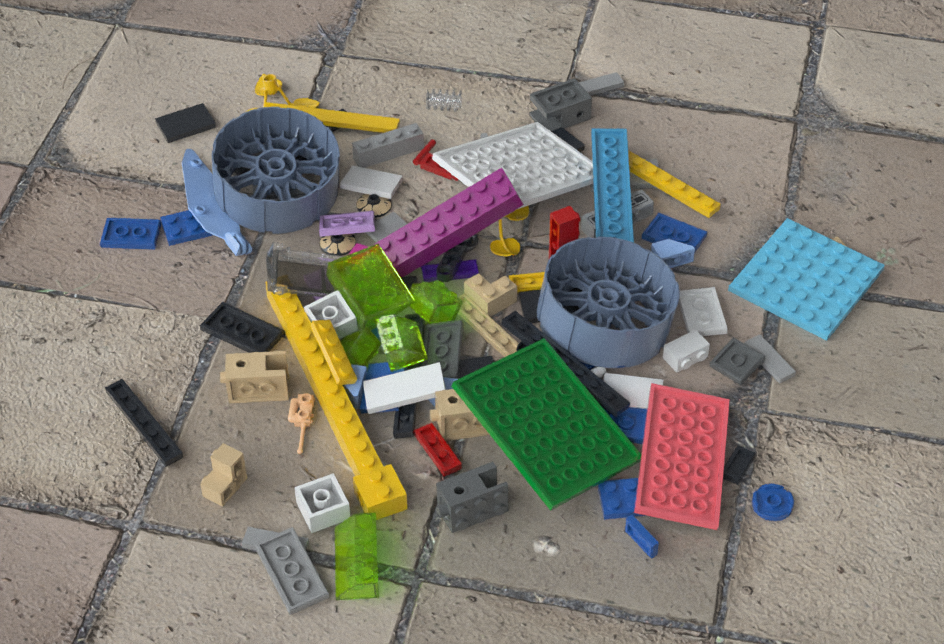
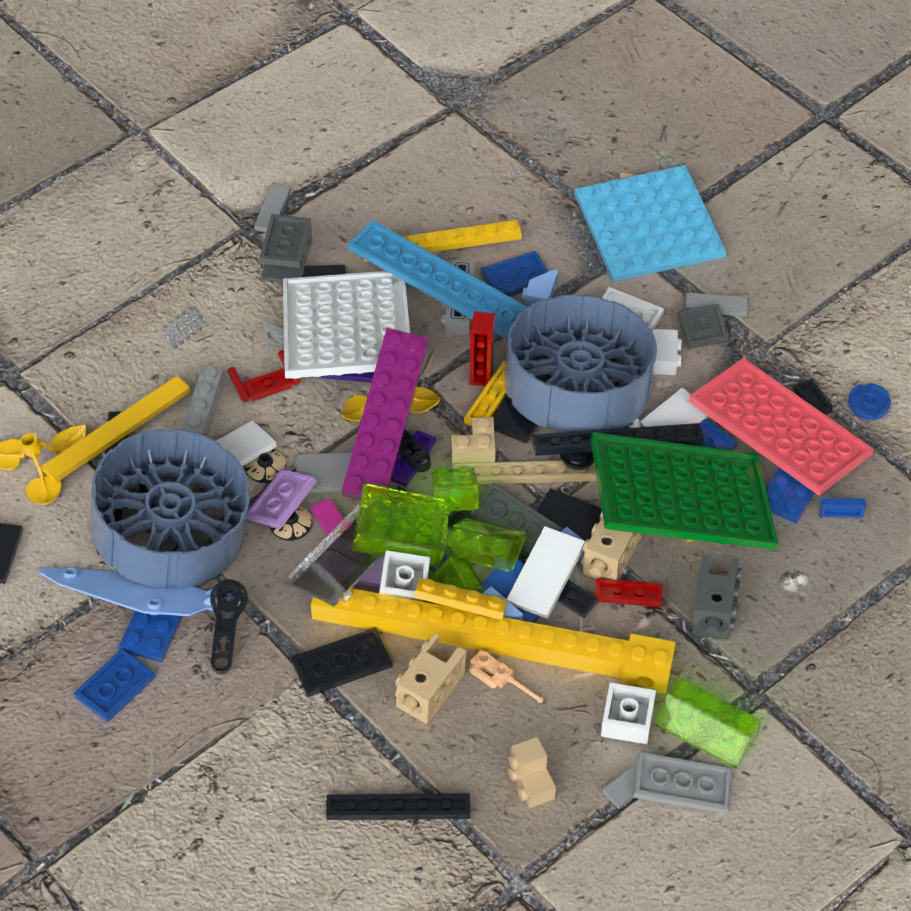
camera: 55 degrees left, 5 degrees up
(216, 252) = (226, 619): none -> black beam

